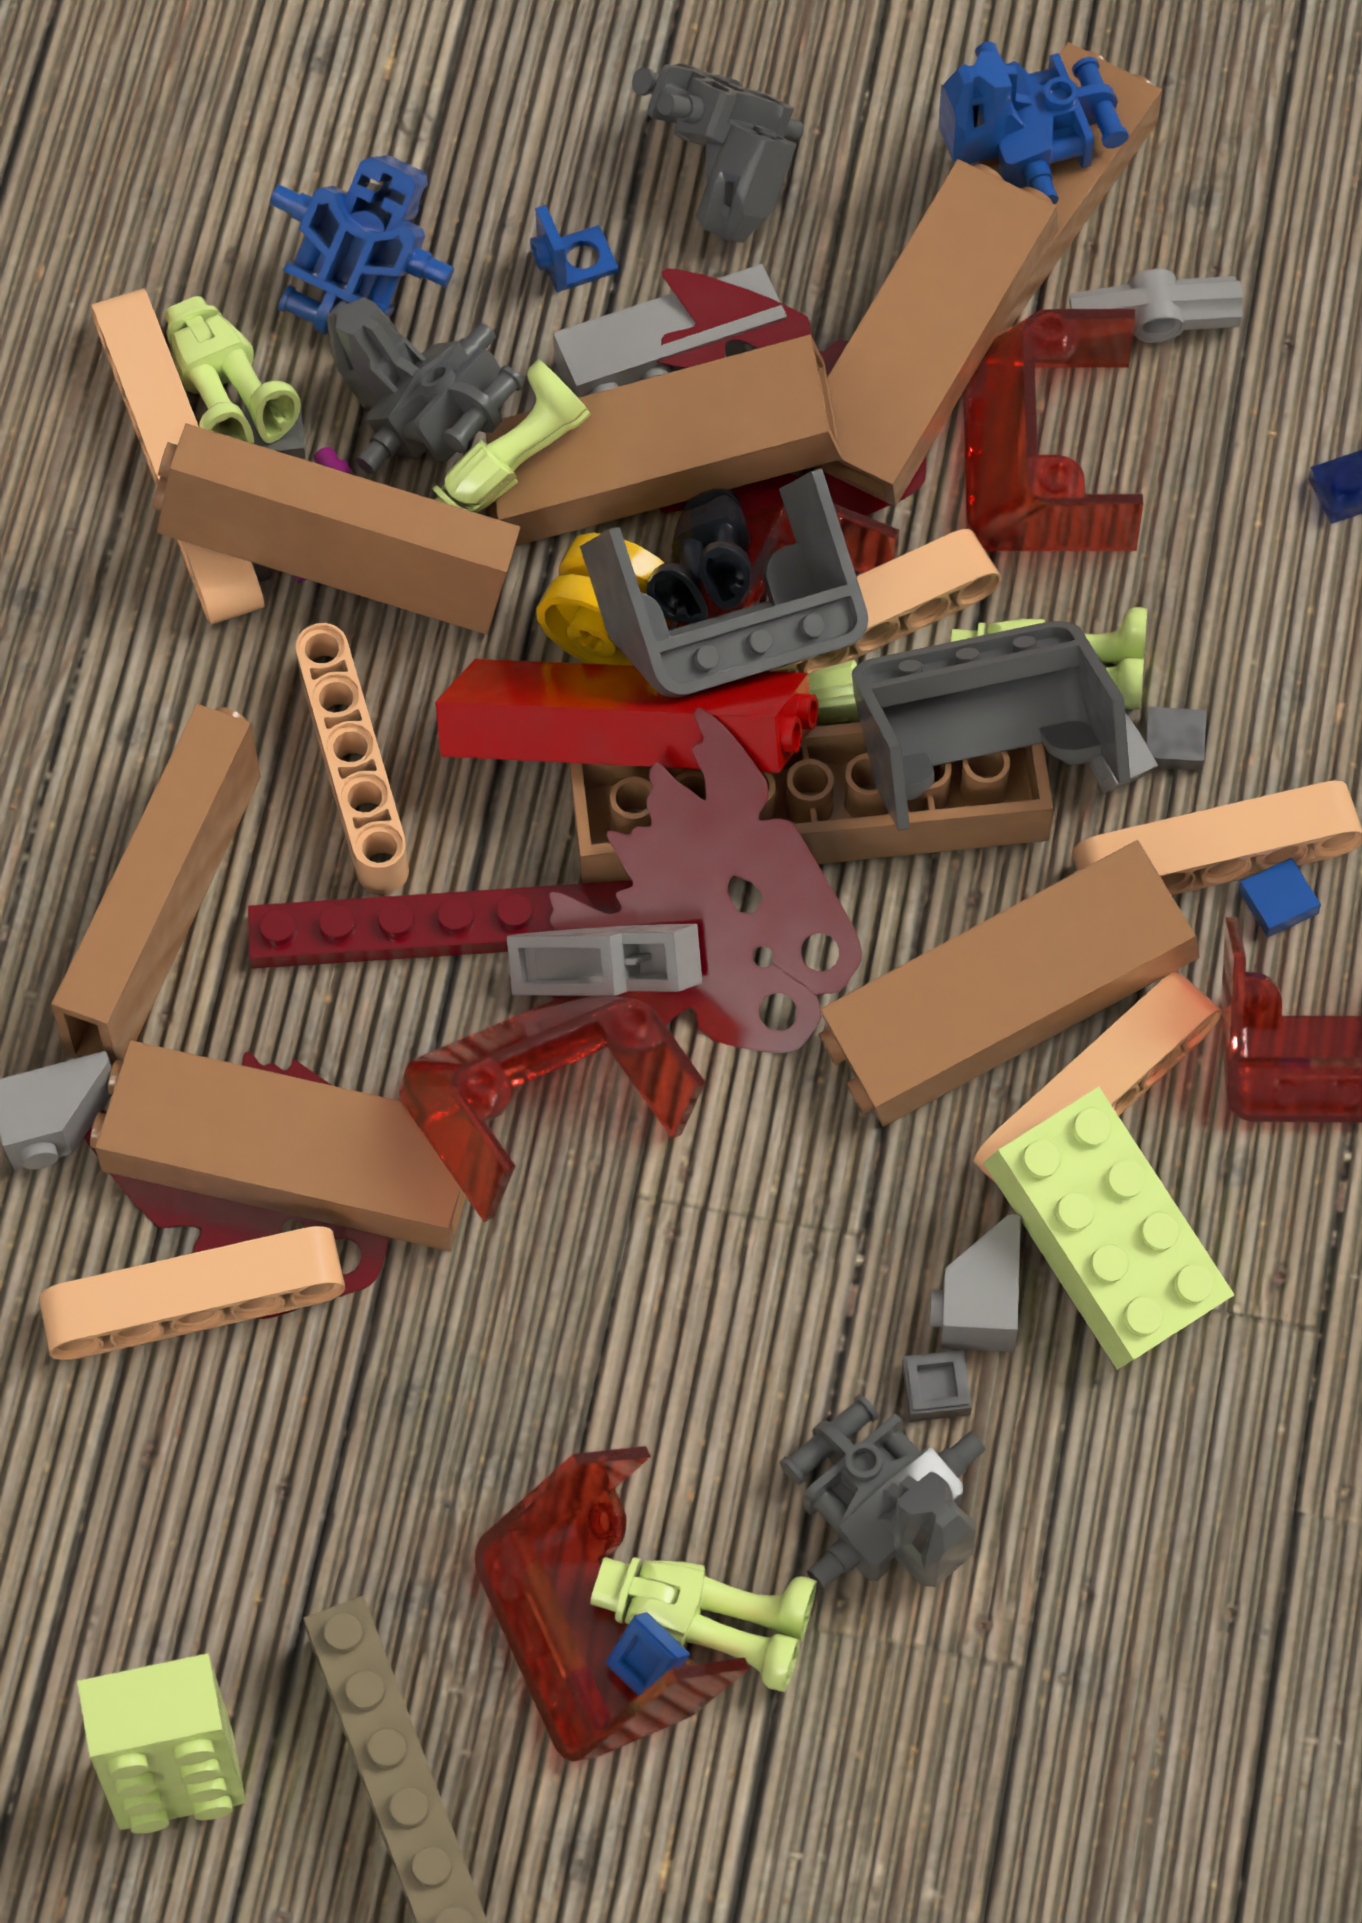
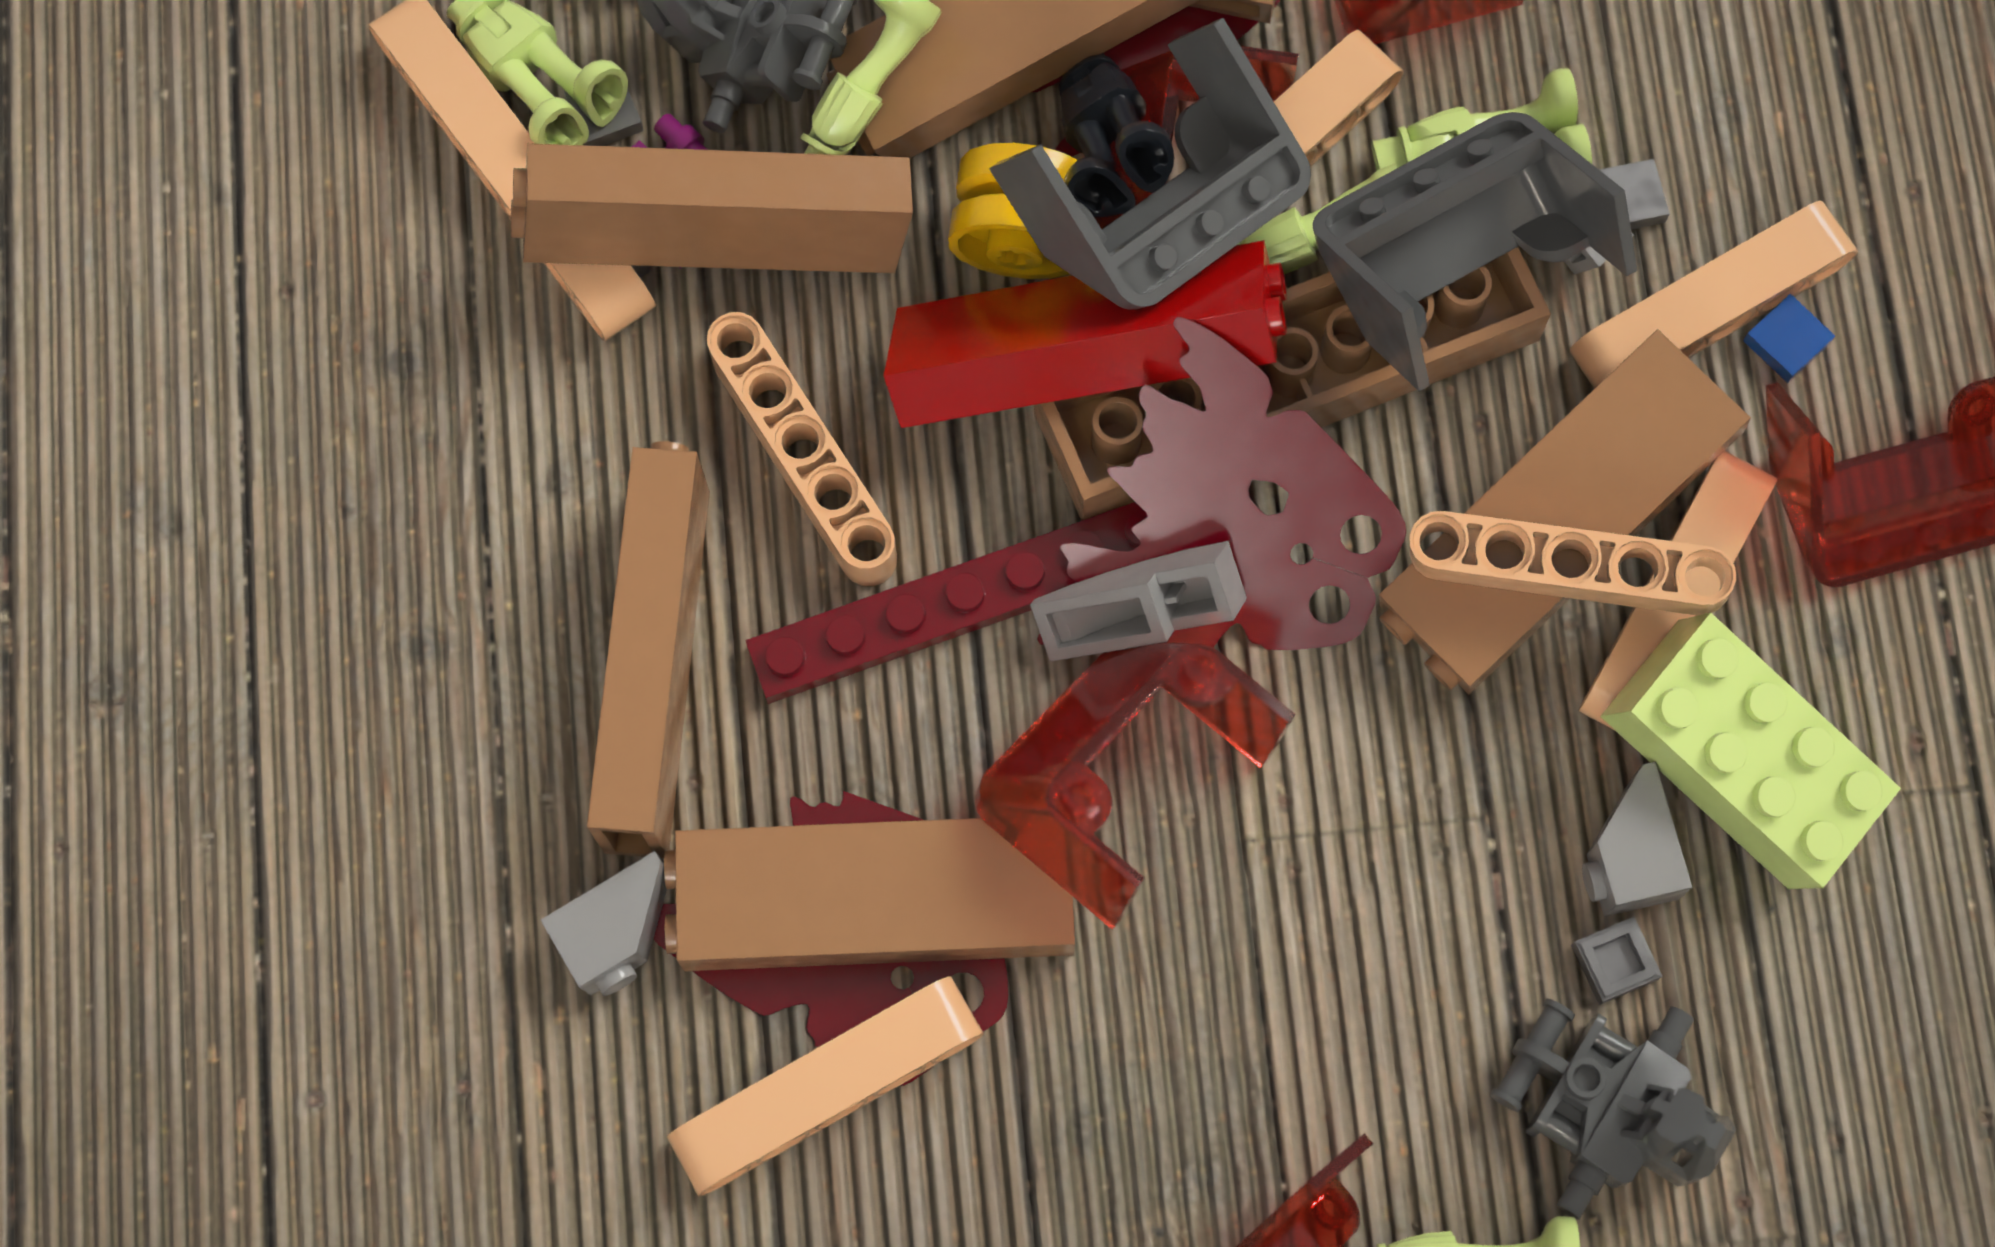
camera: 15 degrees left, 10 degrees up
(974, 994) = (1601, 549): none -> light nougat beam

